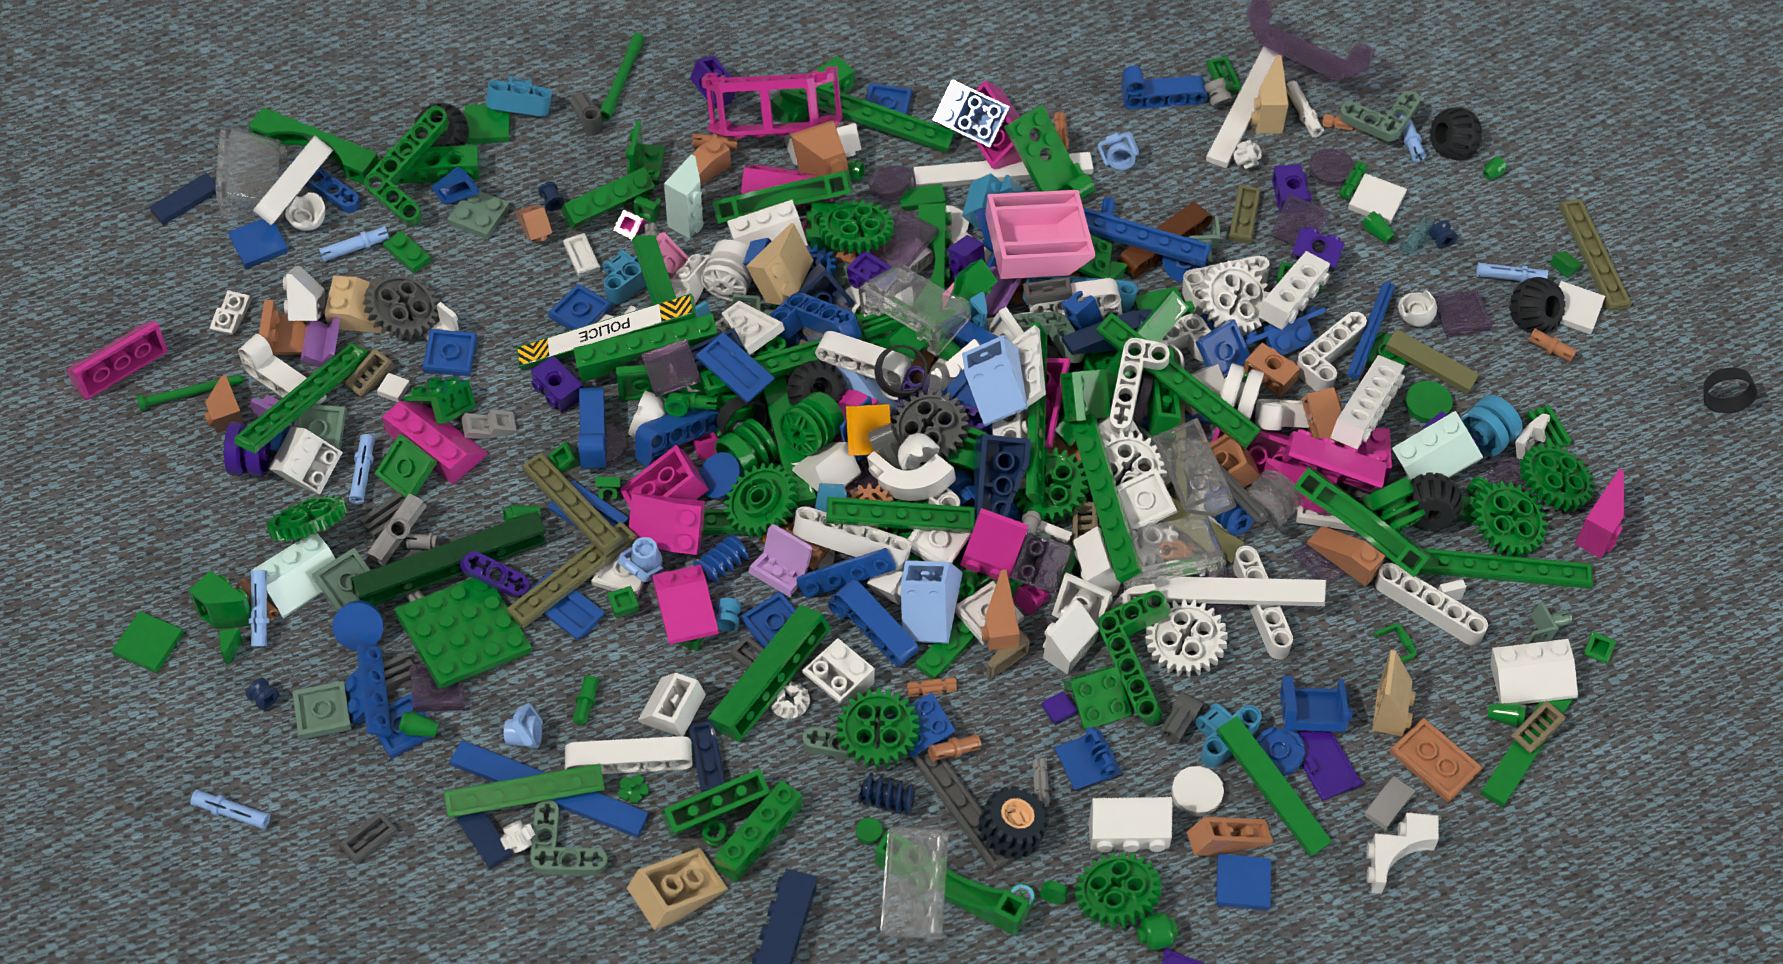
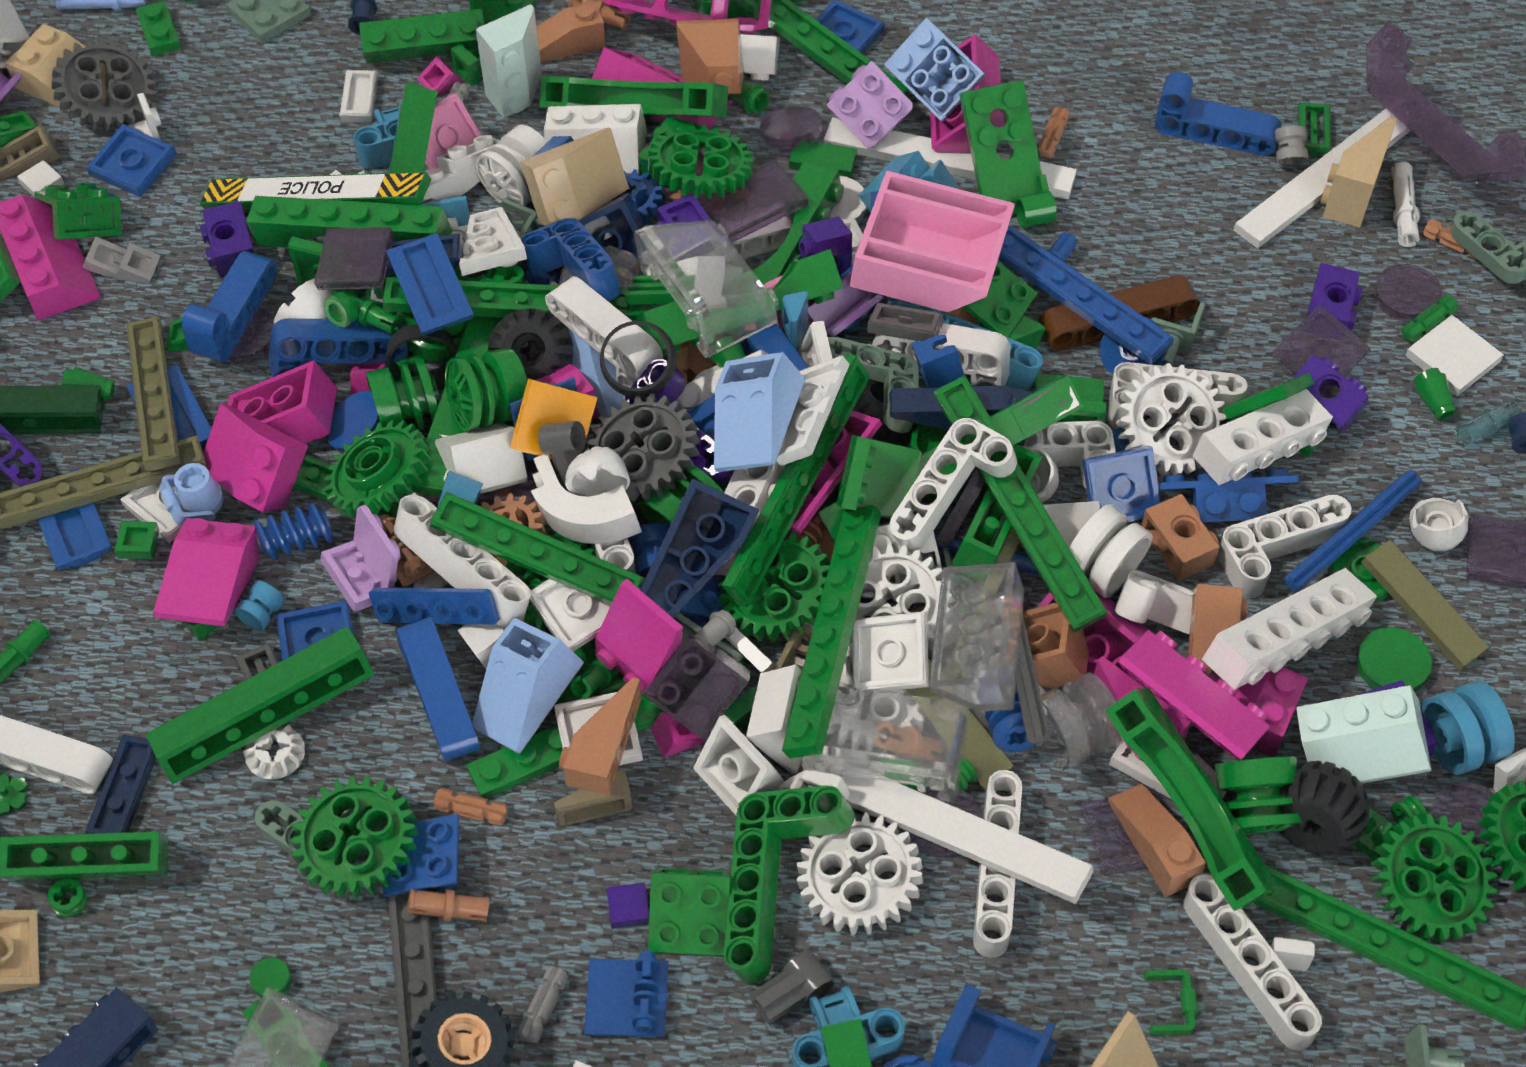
camera: 25 degrees right, 0 degrees up
(534, 222) = (321, 39): nougat slope -> none
(580, 308) = (316, 155): blue tile -> none
(608, 483) = (215, 384): green tile -> none
(673, 704) = (117, 703): white slope -> none
(758, 831) = (118, 919): green brick -> none
(840, 672) = (351, 741): white slope -> none
(887, 795) = (318, 937): dark blue piece -> none
(939, 151) = (869, 105): none -> lavender bracket
(1069, 637) = (689, 808): white slope -> none
(1121, 151) = (1118, 181): light blue piece -> none
(1244, 214) = (1251, 316): olive tile -> none
(1247, 154) = (1292, 237): white gear -> none
(1286, 263) = (1268, 396): none -> green tile

